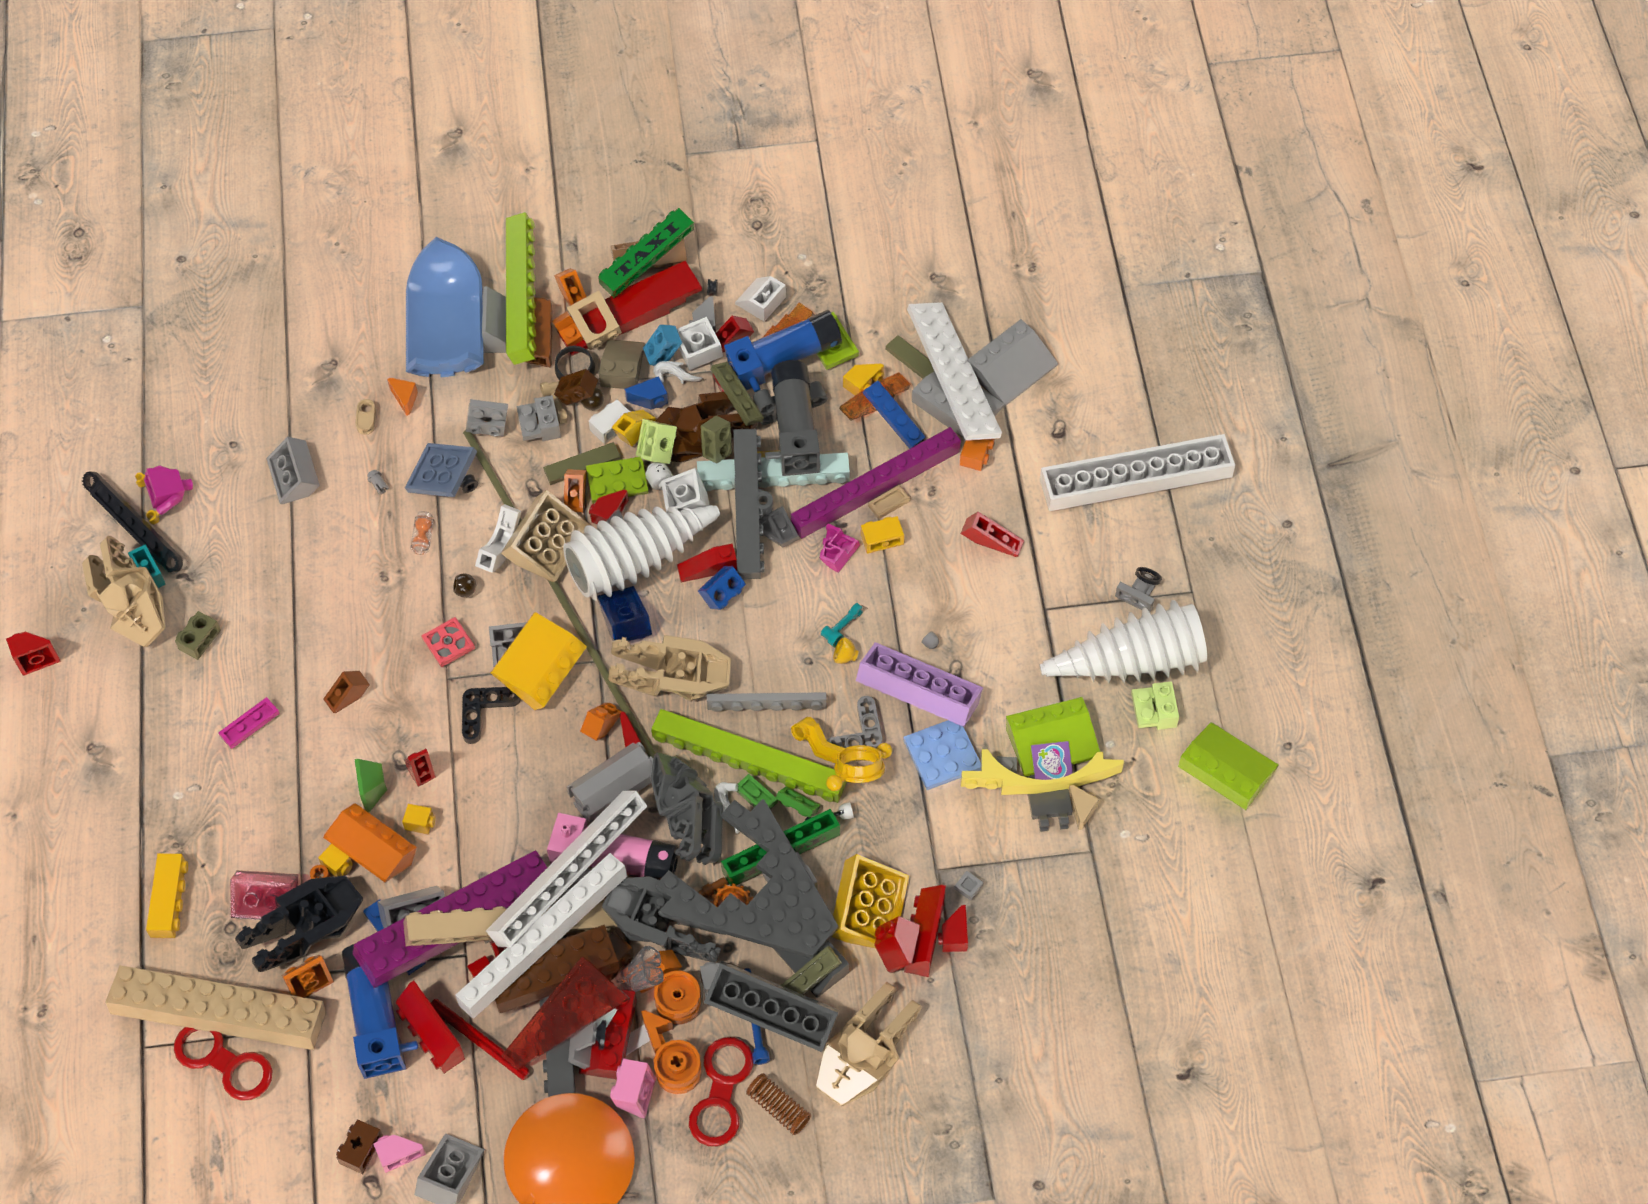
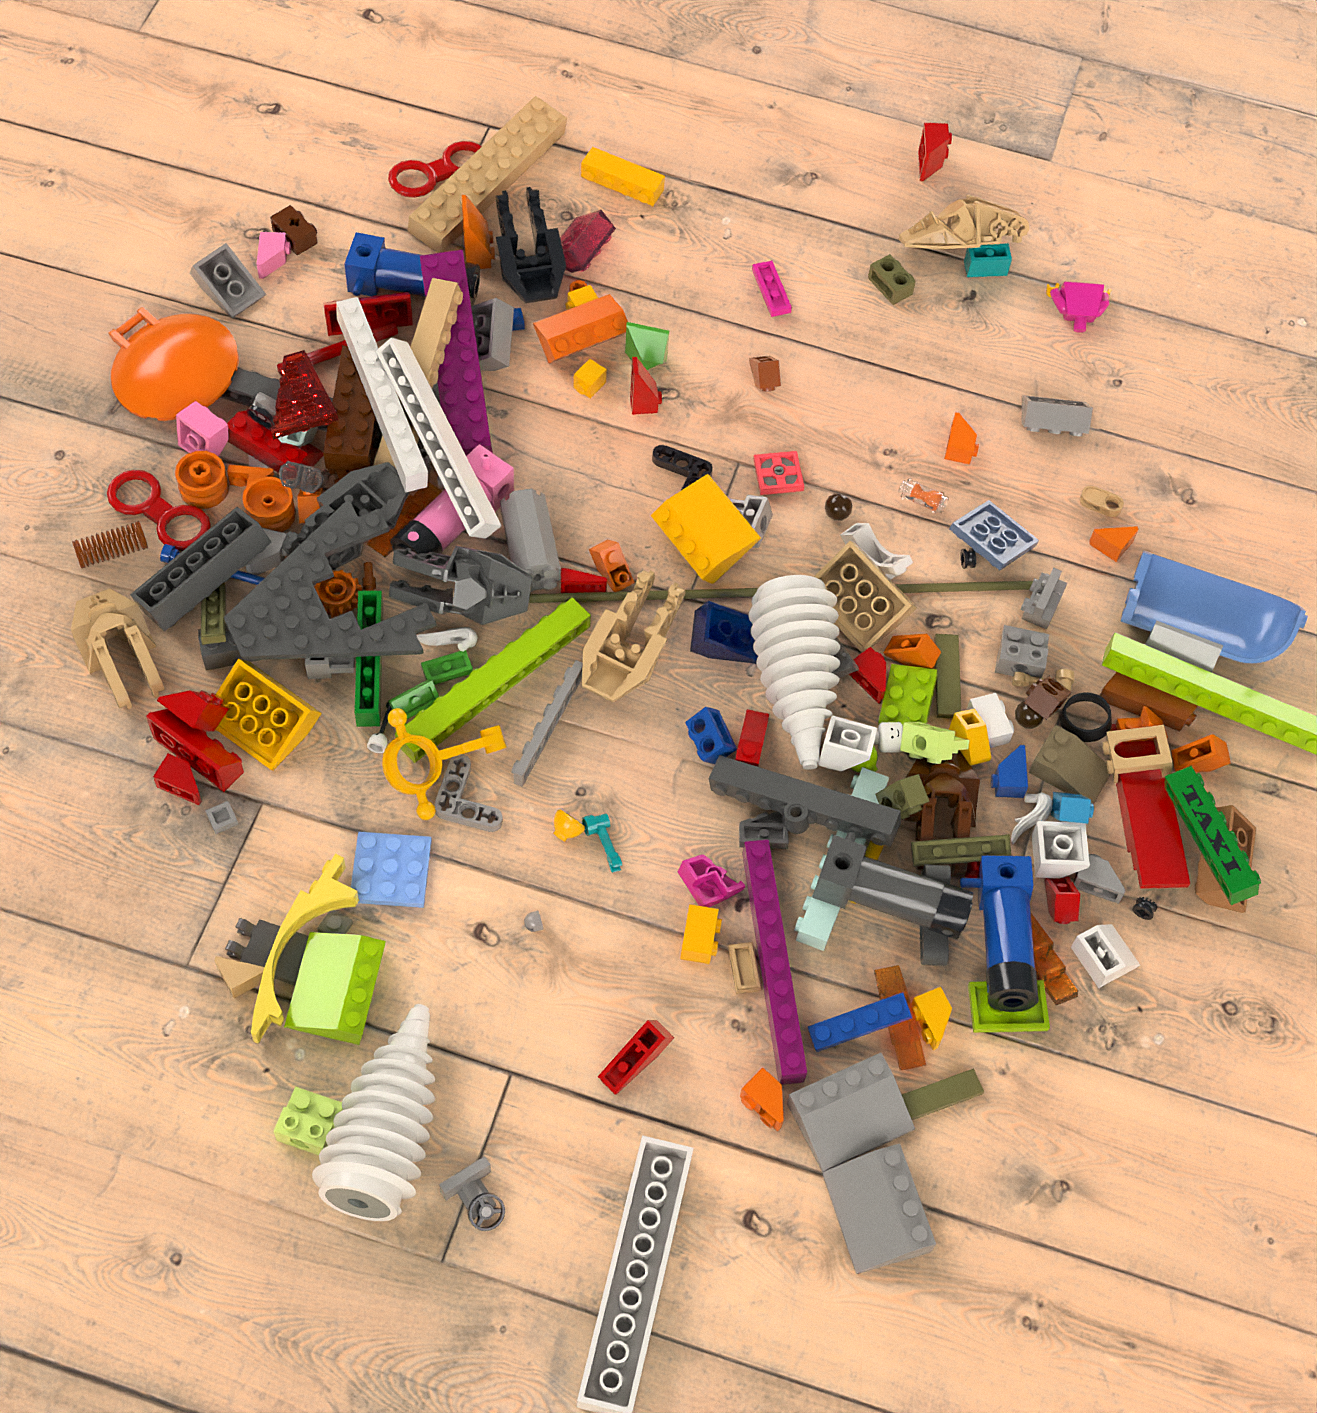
camera: 110 degrees right, 0 degrees up
(132, 521) = (1059, 269): black plate -> none
(352, 526) = (961, 441): none -> orange slope
(375, 478) = (1009, 481): light grey pin -> none
(919, 684) = (478, 872): lavender brick -> none
(954, 371) = (890, 1118): white plate -> none
(1051, 760) = (305, 966): sticker -> none
(1227, 765) = (190, 1168): lime slope -> none

